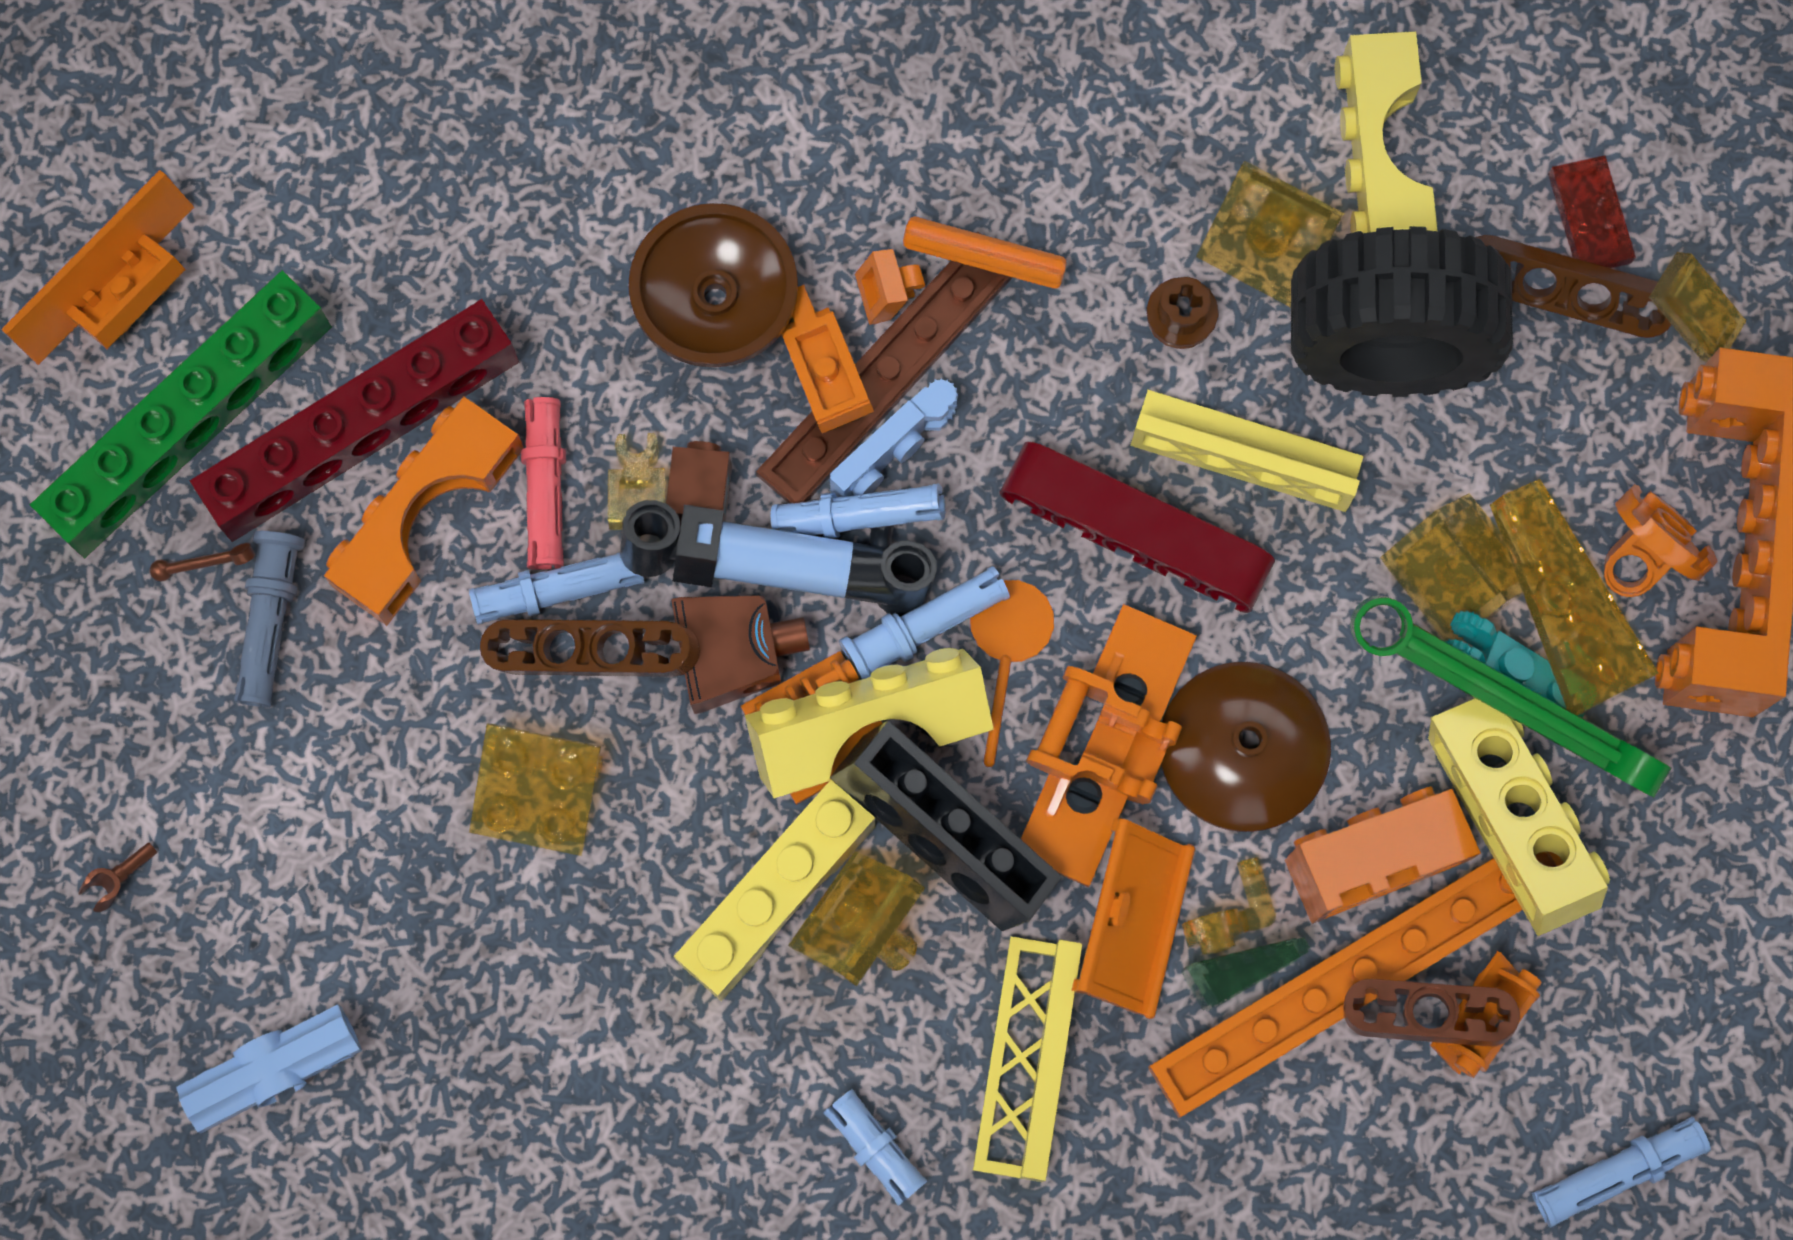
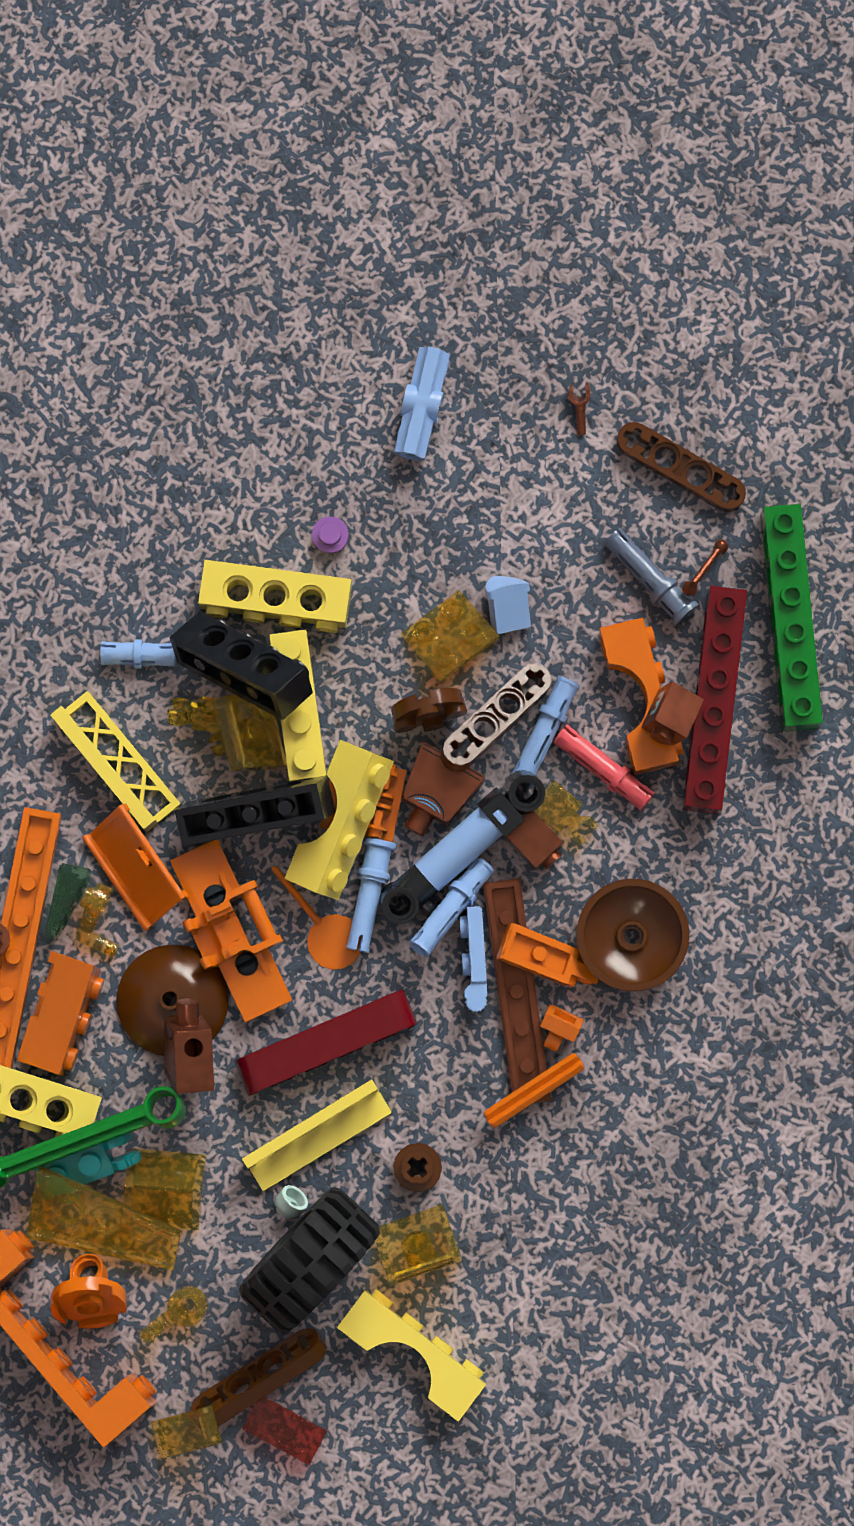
camera: 135 degrees right, 5 degrees up
(90, 696) = (684, 461): none -> reddish brown beam
(414, 438) = (672, 714): none -> copper brick
(436, 754) = (508, 603): none -> light blue tile
(529, 1041) = (330, 535): none -> medium lavender plate
(600, 970) = (221, 577): none -> light yellow brick
(649, 729) = (428, 711): none -> reddish brown plate
(788, 908) = (241, 665): none -> black brick
(881, 999) = (200, 714): none -> clear yellow plate
(1293, 657) = (188, 1049): none -> copper torso
(1341, 424) = (290, 1202): none -> light aqua hinge
(1580, 433) = (177, 1313): none -> clear yellow plate

